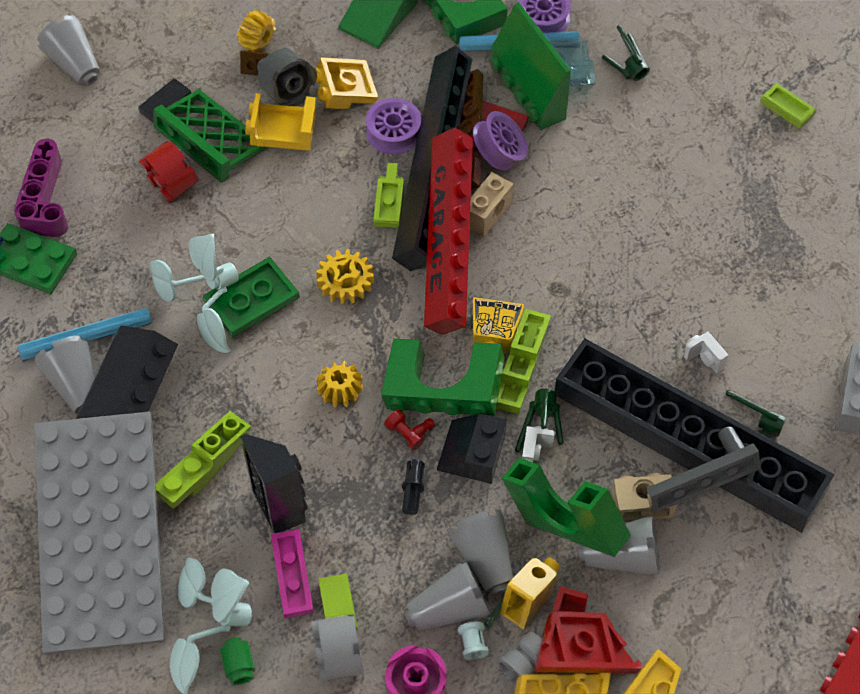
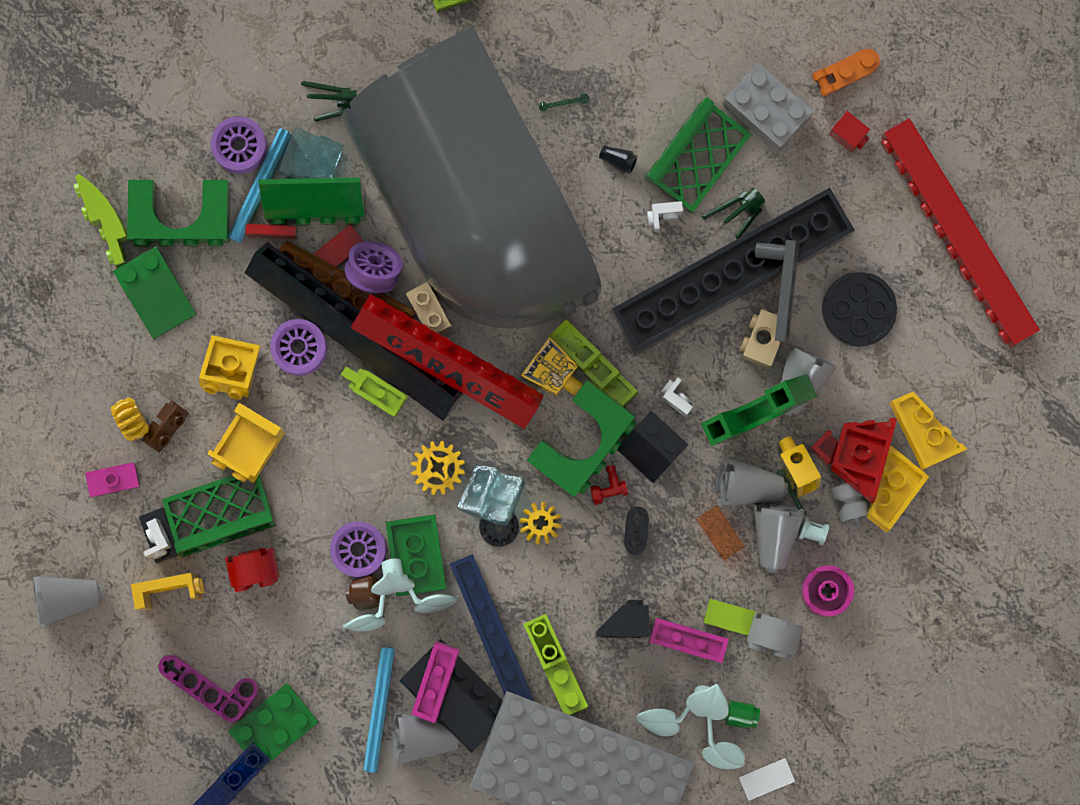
camera: 60 degrees left, 25 degrees up
(107, 104) = (142, 590): none -> yellow panel
(129, 347) = (435, 682): none -> dark pink plate
(161, 93) = (157, 535): none -> white bracket
(185, 269) = (361, 594): none -> reddish brown head
(197, 49) = (112, 479): none -> dark pink plate
(211, 390) = (490, 627): none -> dark blue plate
(239, 237) = (337, 541): none -> medium lavender wheel
(286, 77) = (201, 418): dark grey brick -> none
(306, 349) = (502, 538): none -> black gear
(344, 330) = (491, 495): none -> clear light blue slope
(380, 474) = (629, 530): none -> black beam
(413, 486) = (662, 511): black axle -> none
(421, 553) = (720, 532): none -> clear orange tile
(484, 62) = (271, 231): none -> red tile
(544, 406) = (645, 368): dark green plant -> none
(608, 155) = (471, 189): none -> dark grey panel
(732, 294) = (620, 159): none -> black cone
(732, 578) = (859, 309): none -> black tile
(766, 242) = (584, 98): none -> clear green hinge
(789, 334) = (680, 142): none -> green fence

